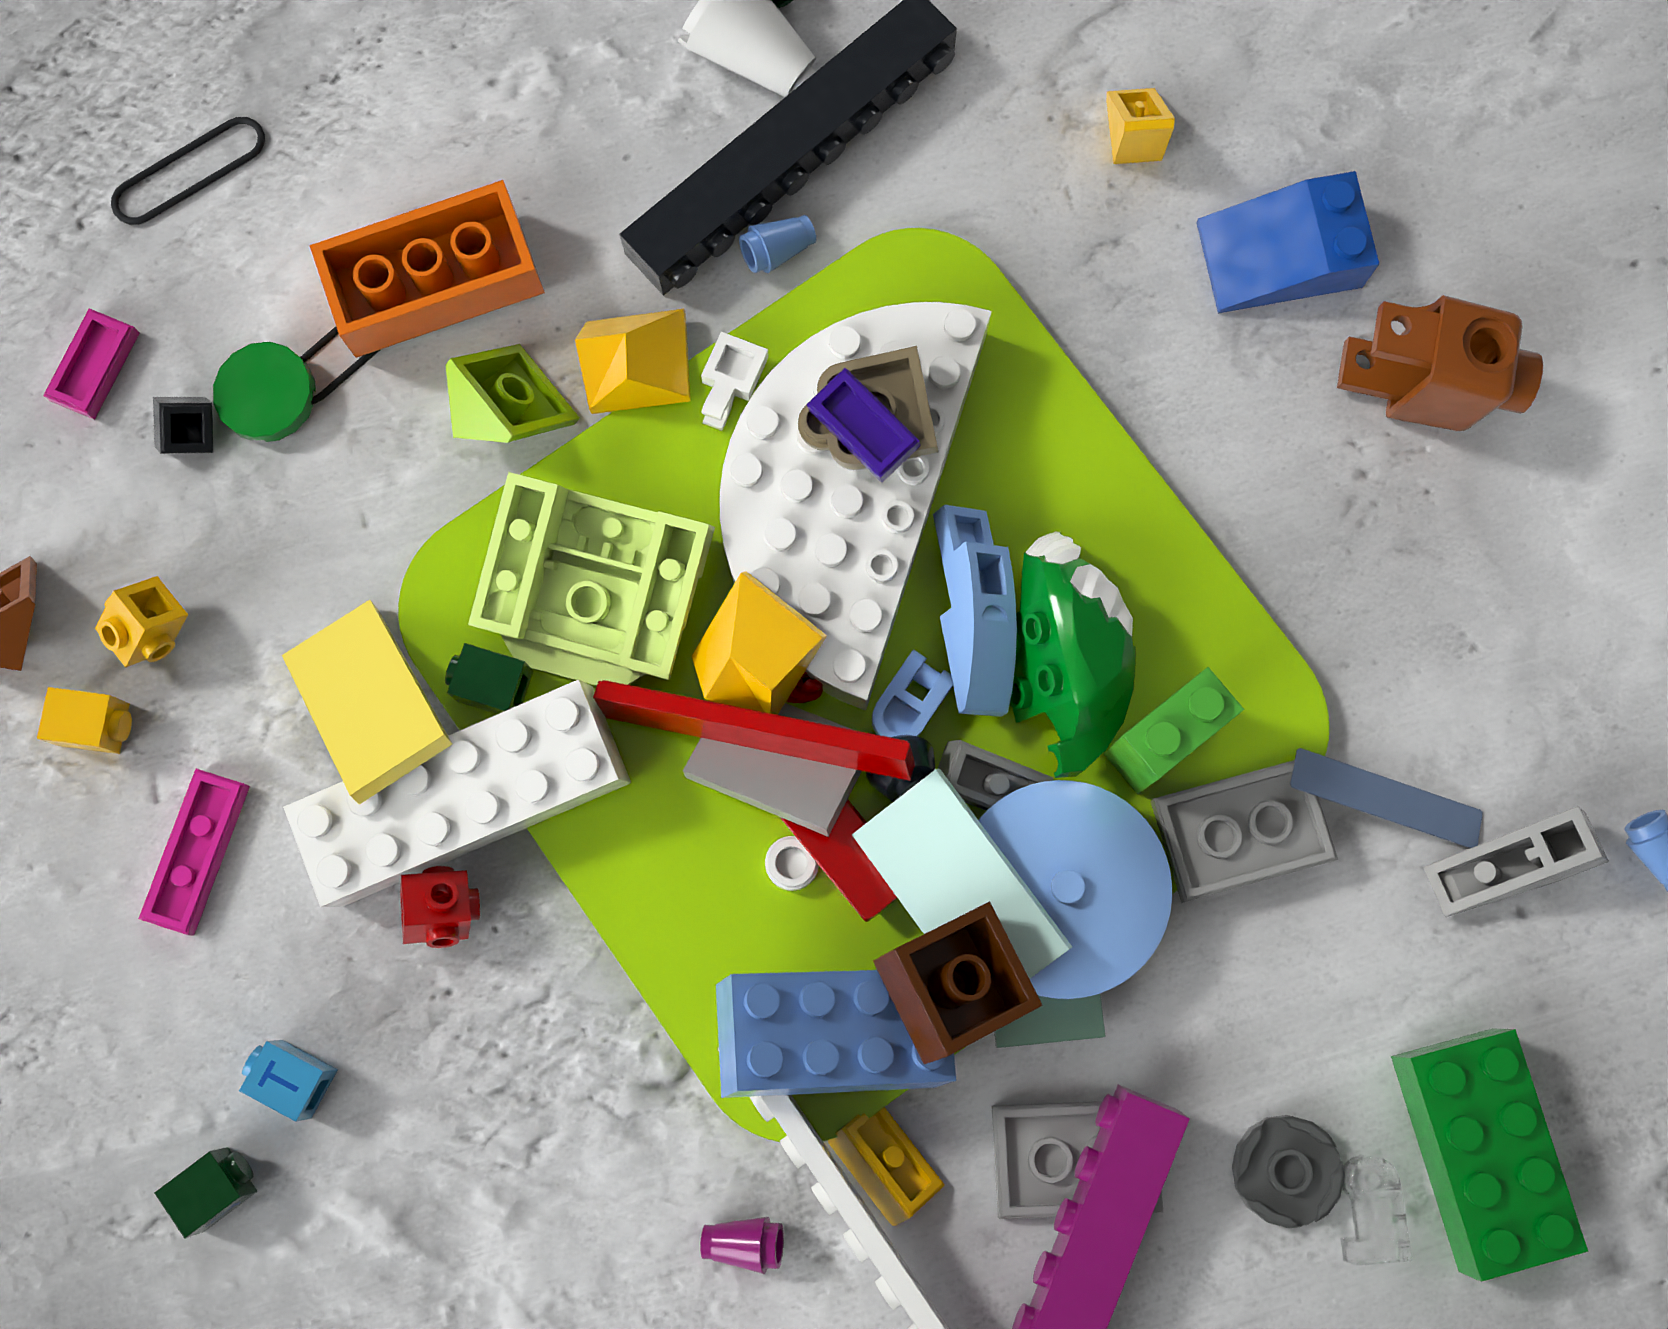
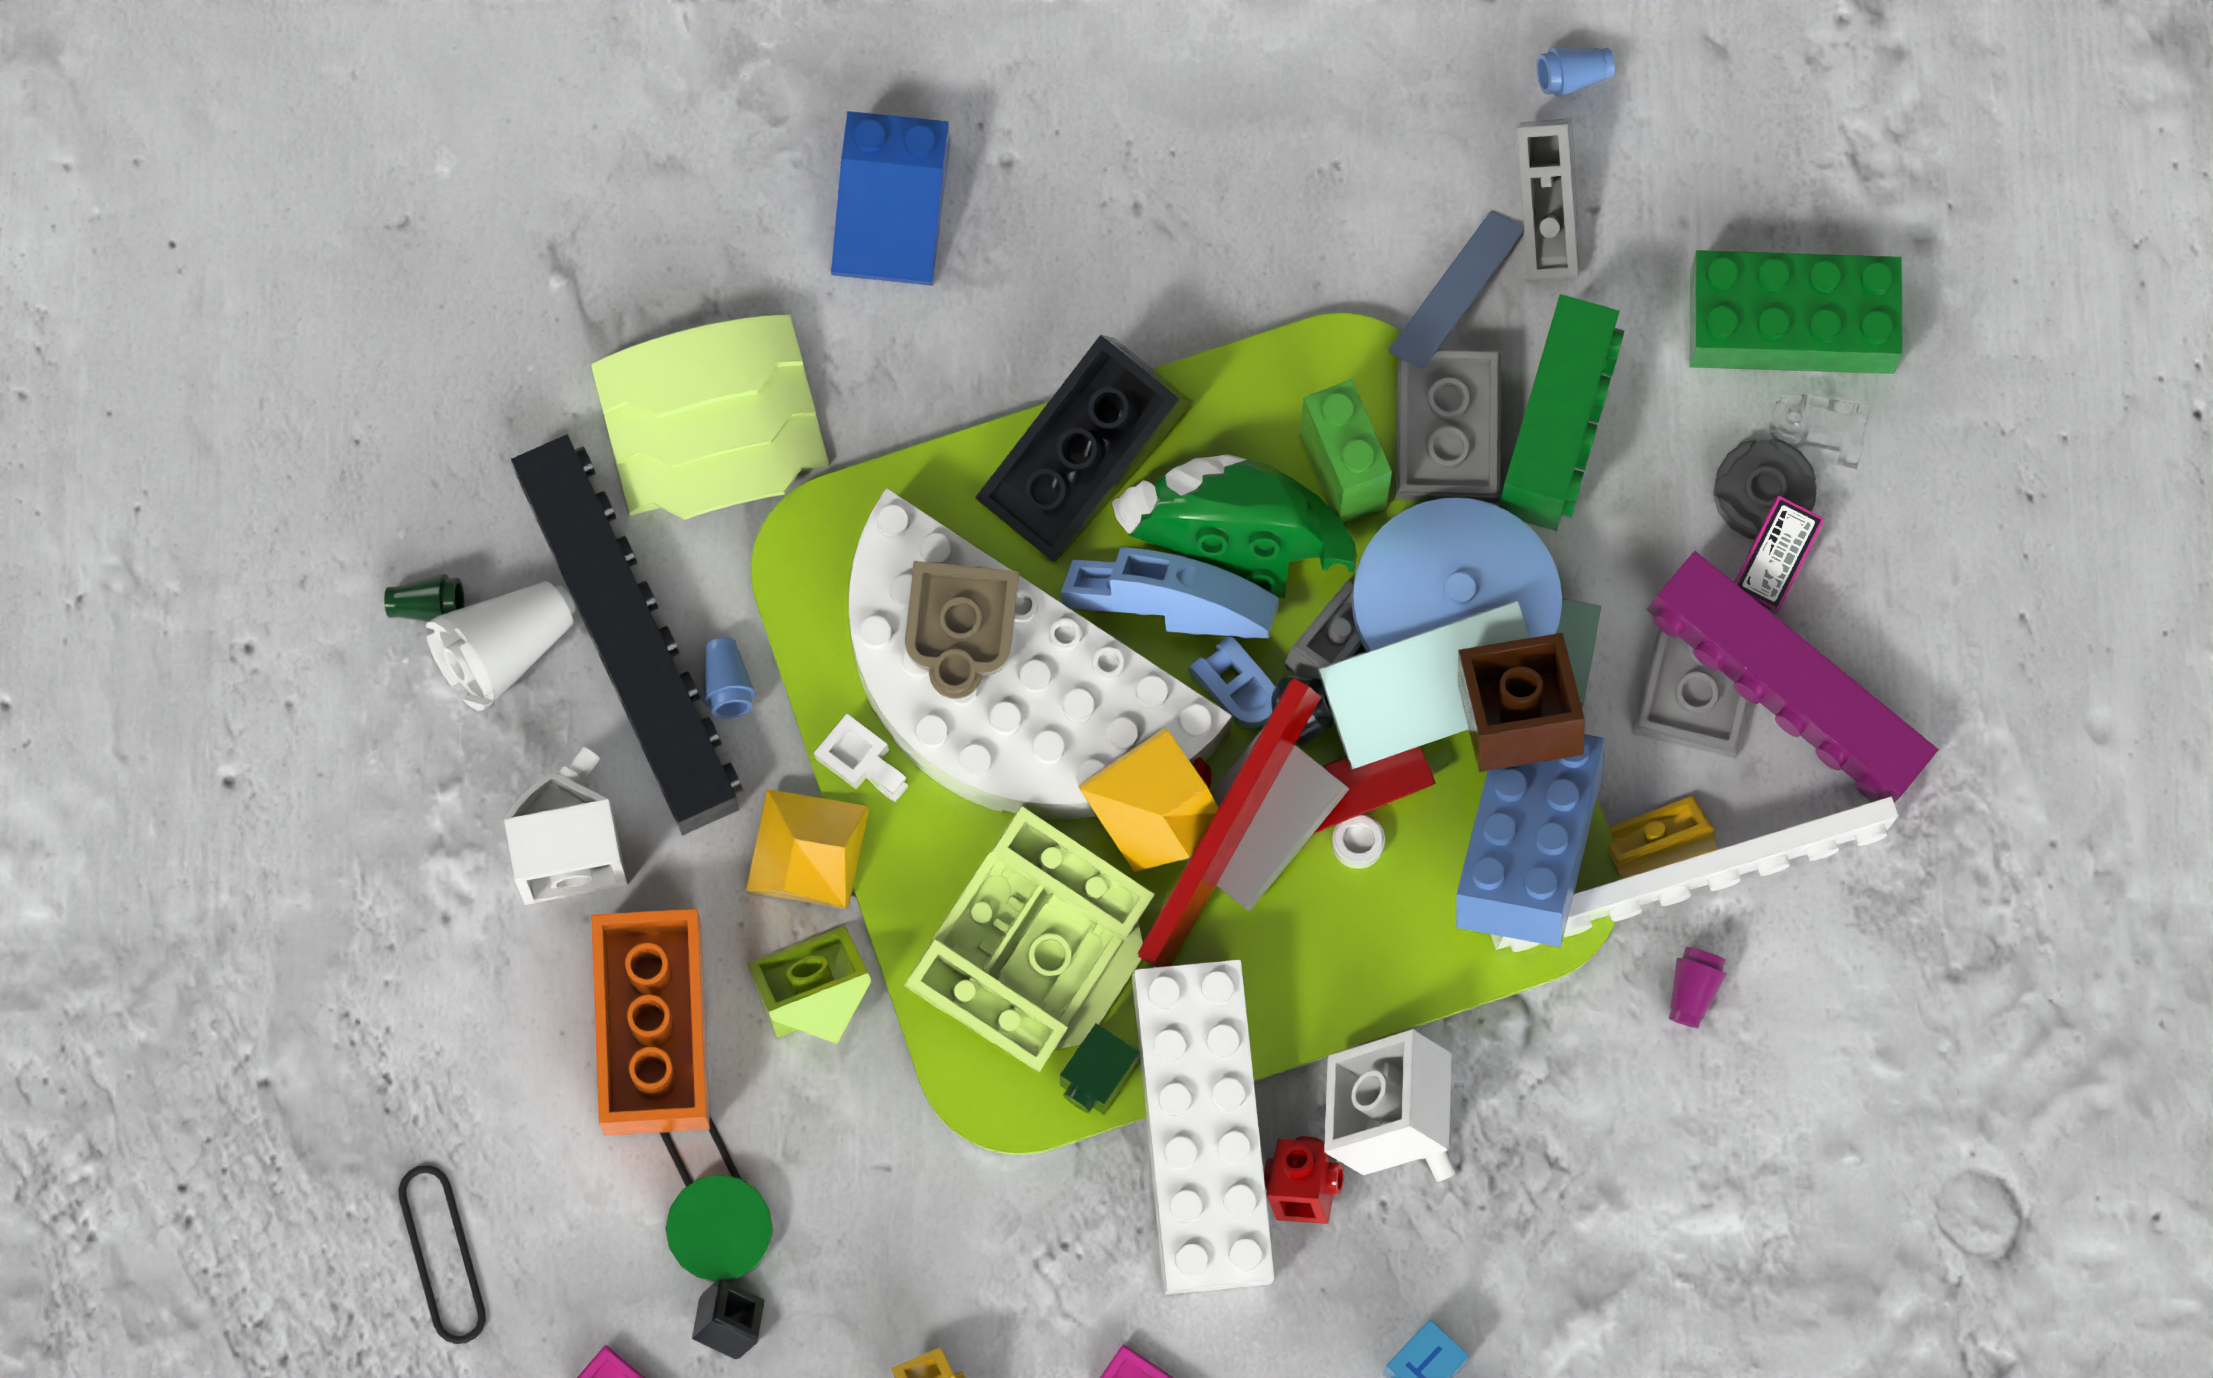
camera: 75 degrees left, 5 degrees down
(365, 702) = (1083, 1189): light yellow tile -> none
(523, 970) = (1390, 1105): none -> white piece
(578, 138) = (564, 836): none -> white piece
(863, 425) = (977, 631): dark purple tile -> none
(1024, 156) = (710, 416): none -> yellowish green slope
(1103, 487) = (1083, 447): none -> black slope
(1138, 125) = (712, 292): yellow slope -> none
(1222, 1204) = (1778, 552): none -> tile
(1301, 935) = (1562, 402): none -> green brick
(1446, 366) = (1065, 74): dark orange piece -> none

